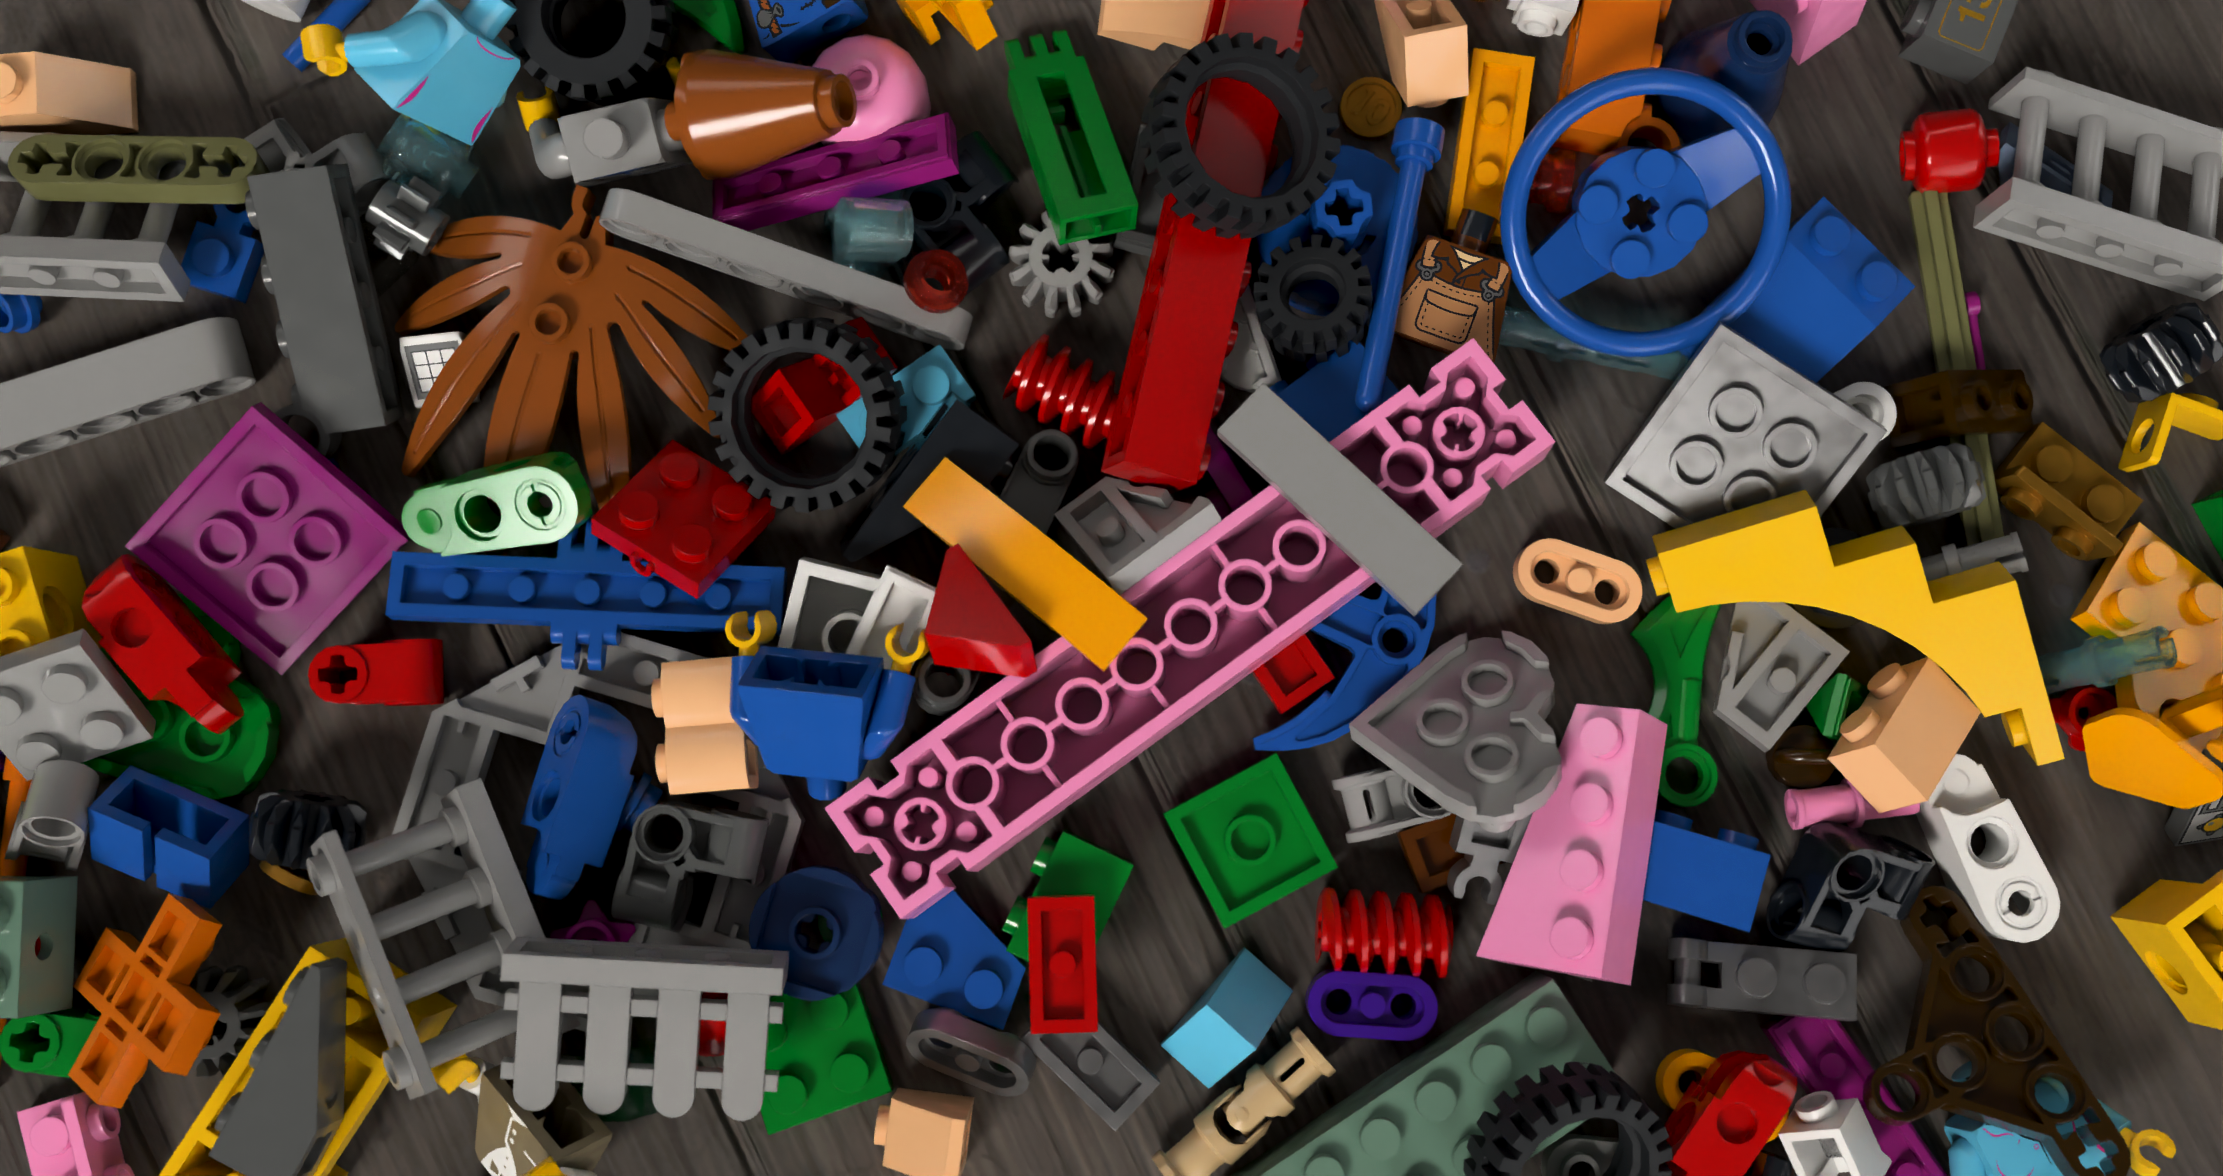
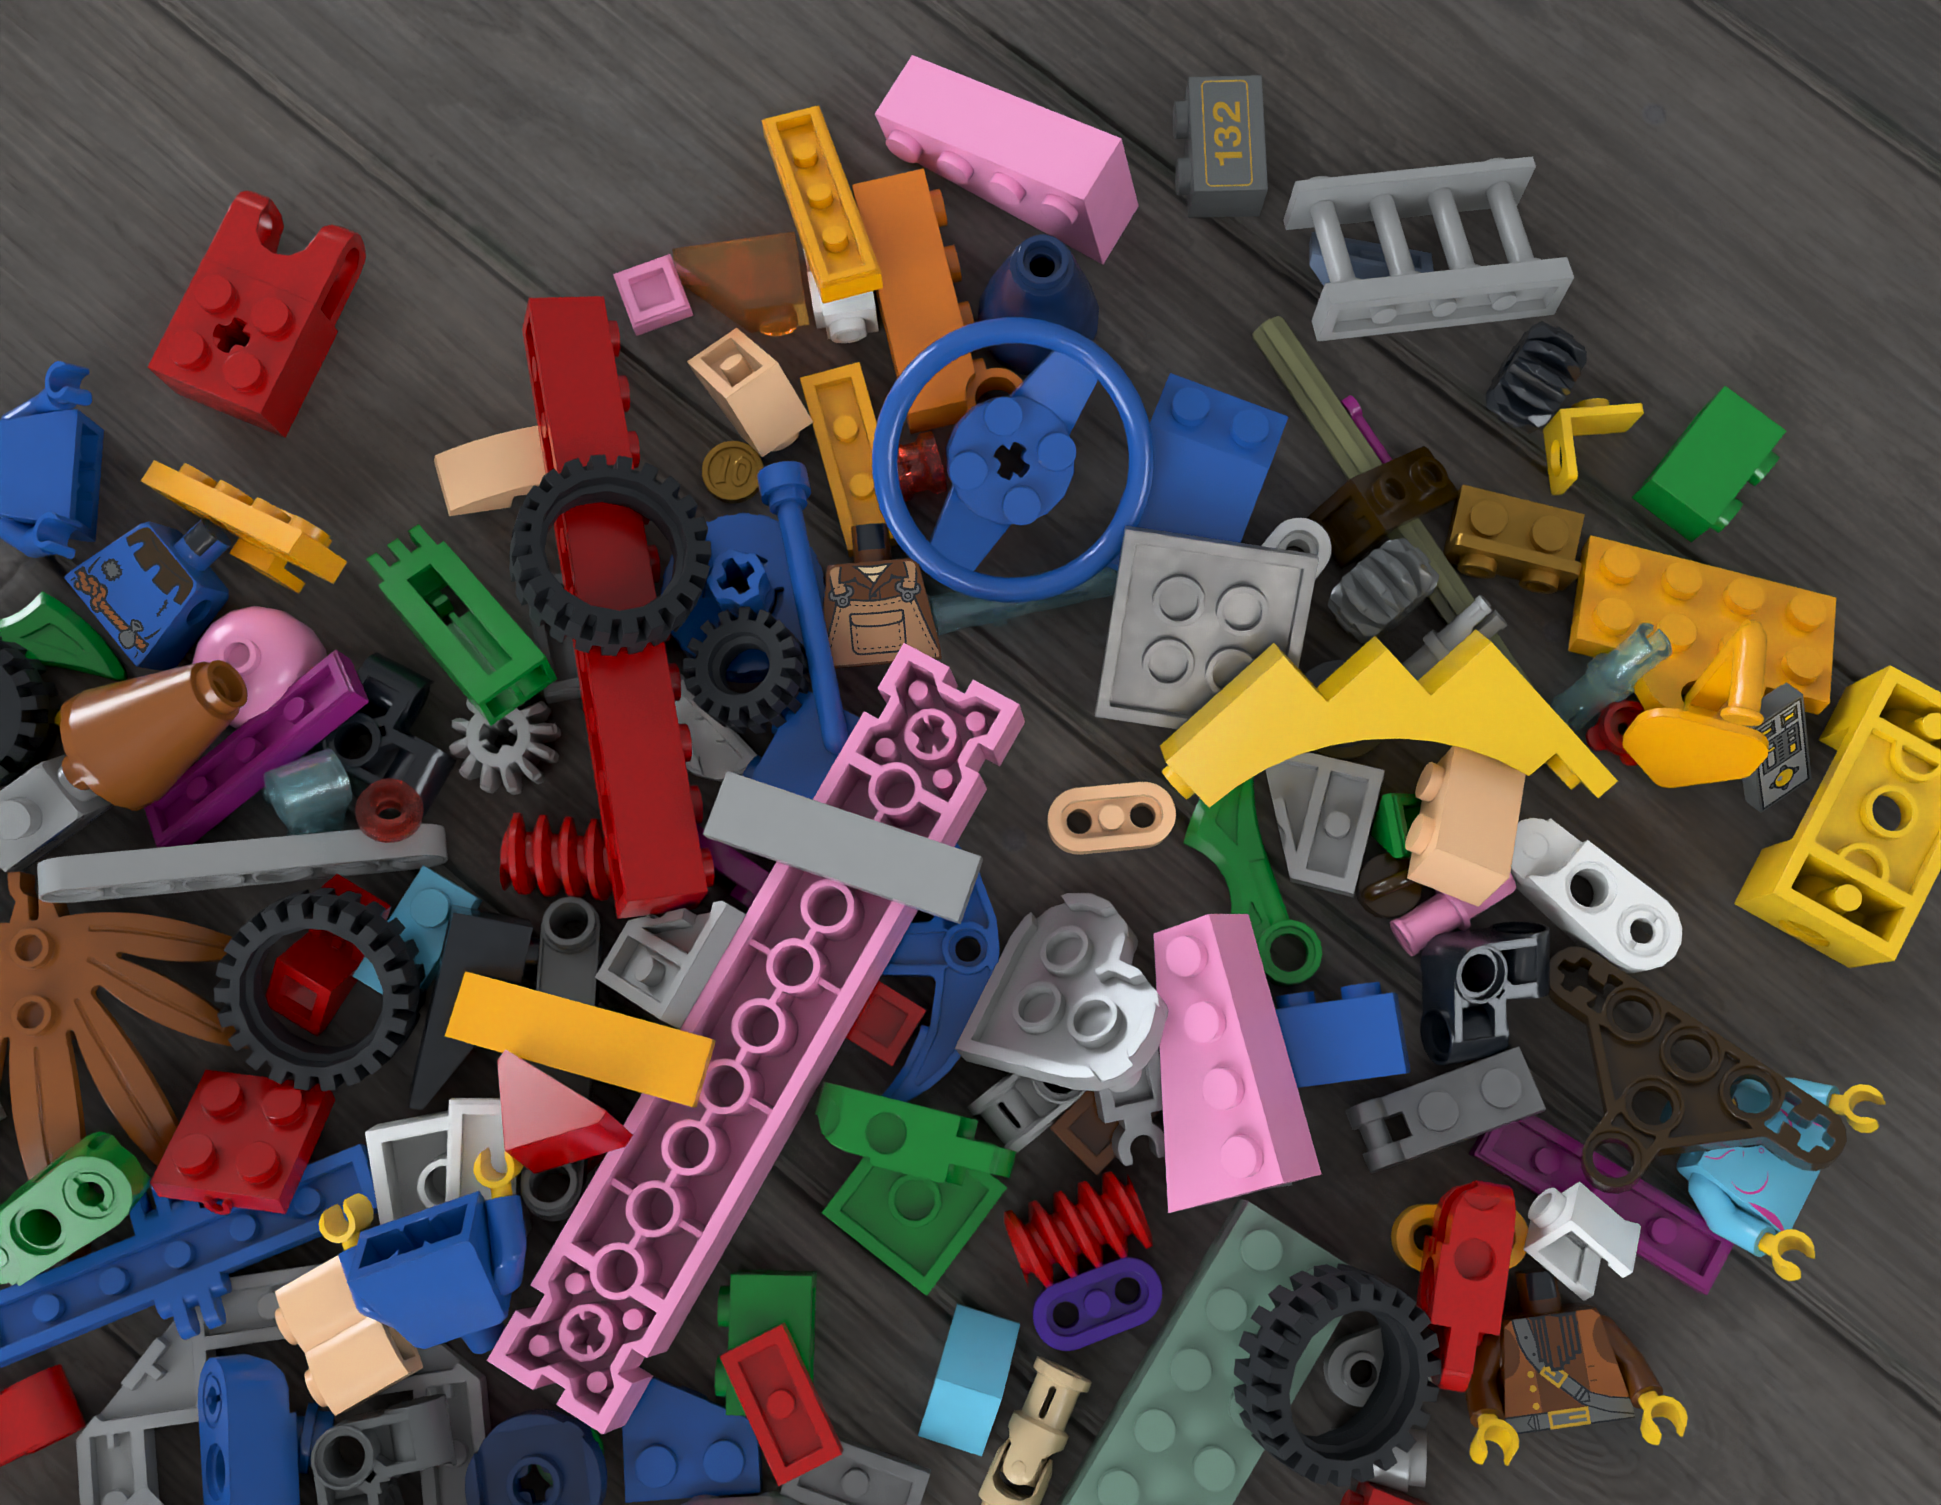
camera: 20 degrees left, 5 degrees down
(1273, 781) = (907, 1136): none -> green piece
(1948, 151) = (1266, 283): red head -> none

